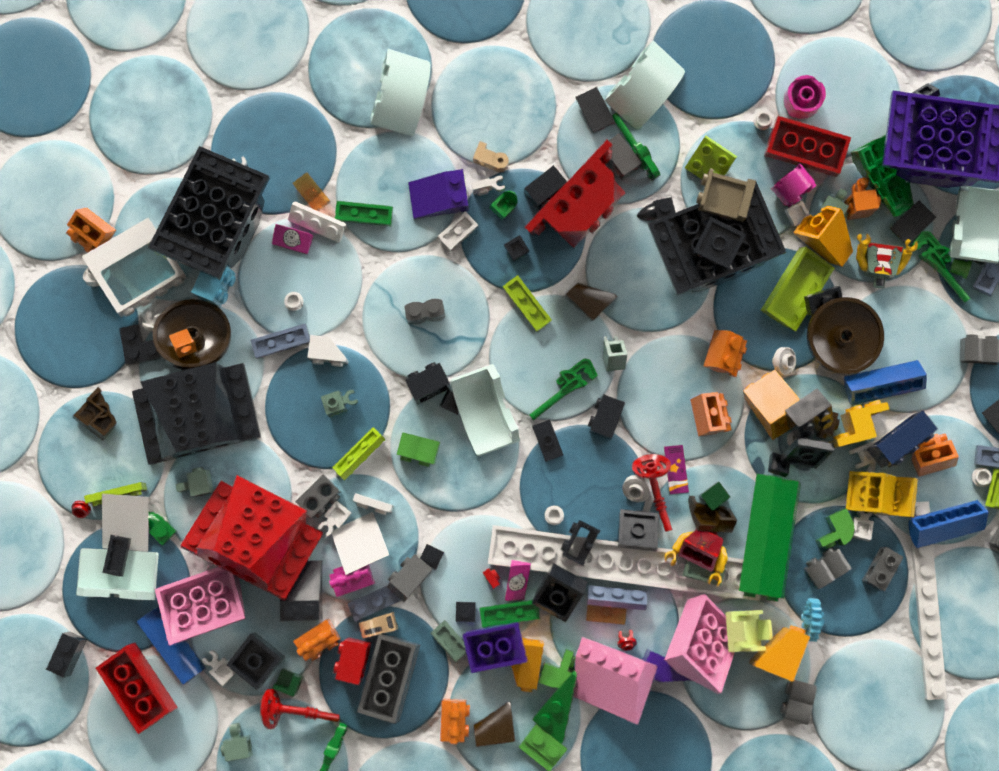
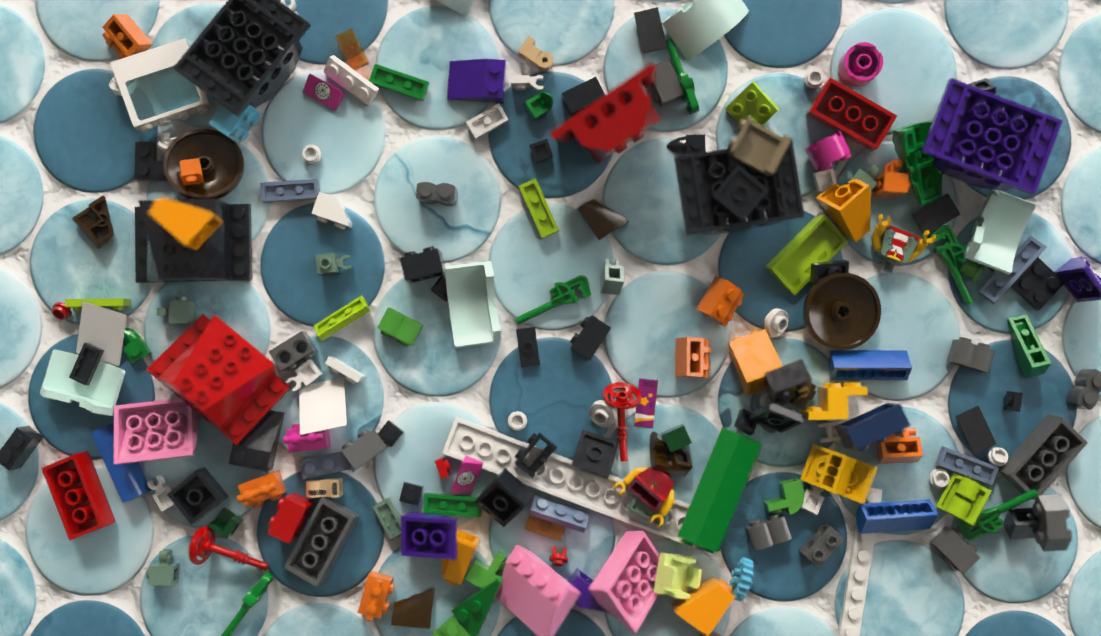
camera: 10 degrees right, 5 degrees up
(193, 388) = (185, 222): none -> light orange slope

